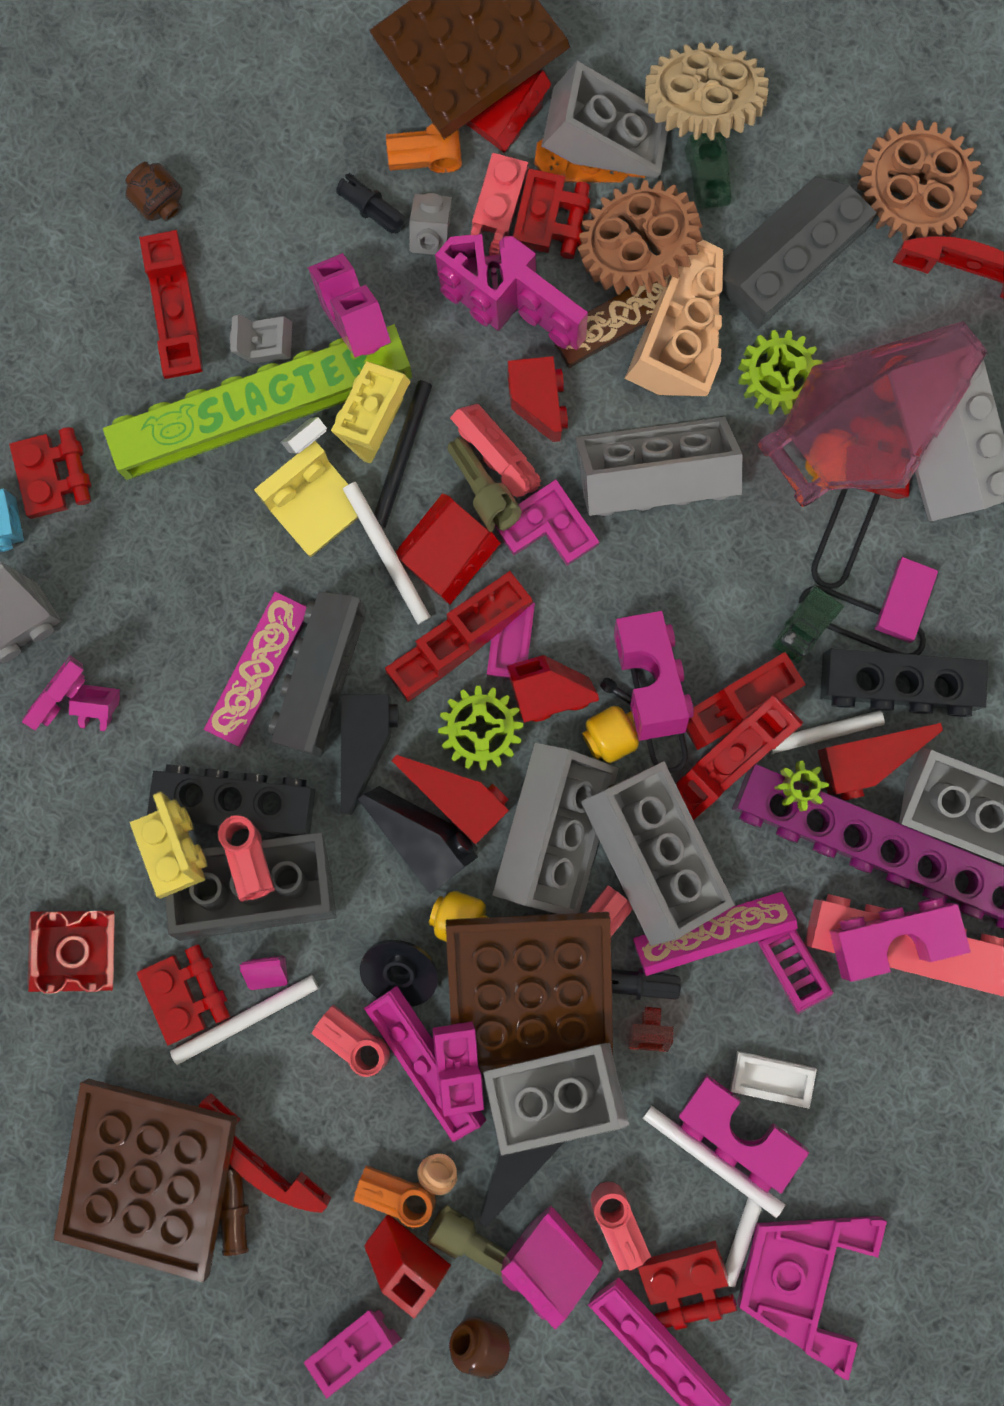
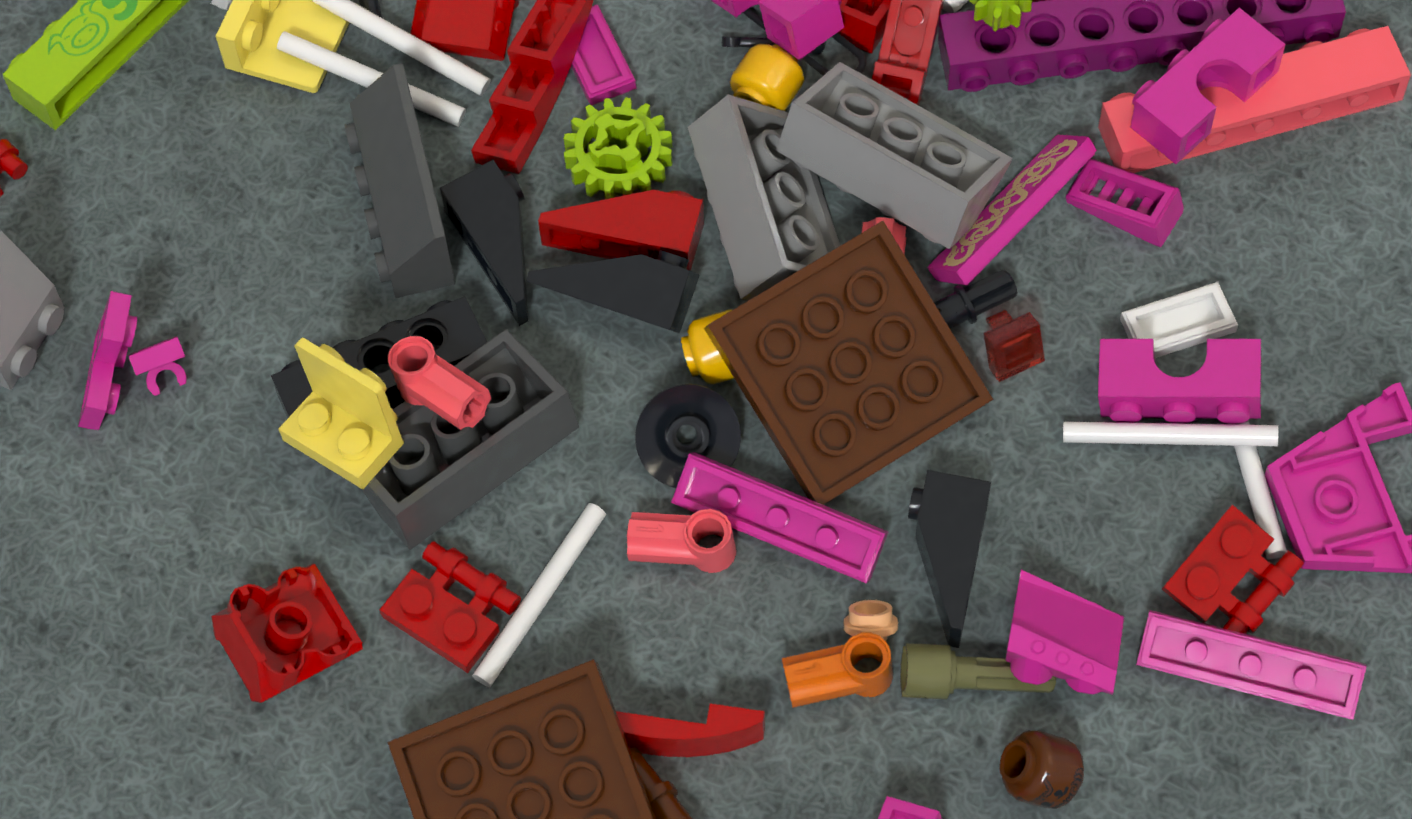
camera: 25 degrees left, 20 degrees down
(257, 670) = (326, 233): tile -> none
(265, 972) = (531, 525): dark pink slope -> none
(349, 571) = (365, 76): none -> white bar
(404, 1265) = (894, 730): red slope -> none
(458, 1069) = (817, 484): dark pink slope -> none
(548, 688) = (664, 67): red slope -> none
(556, 1099) = (949, 438): light grey slope -> none
(620, 1227) = (1117, 560): coral piece -> none

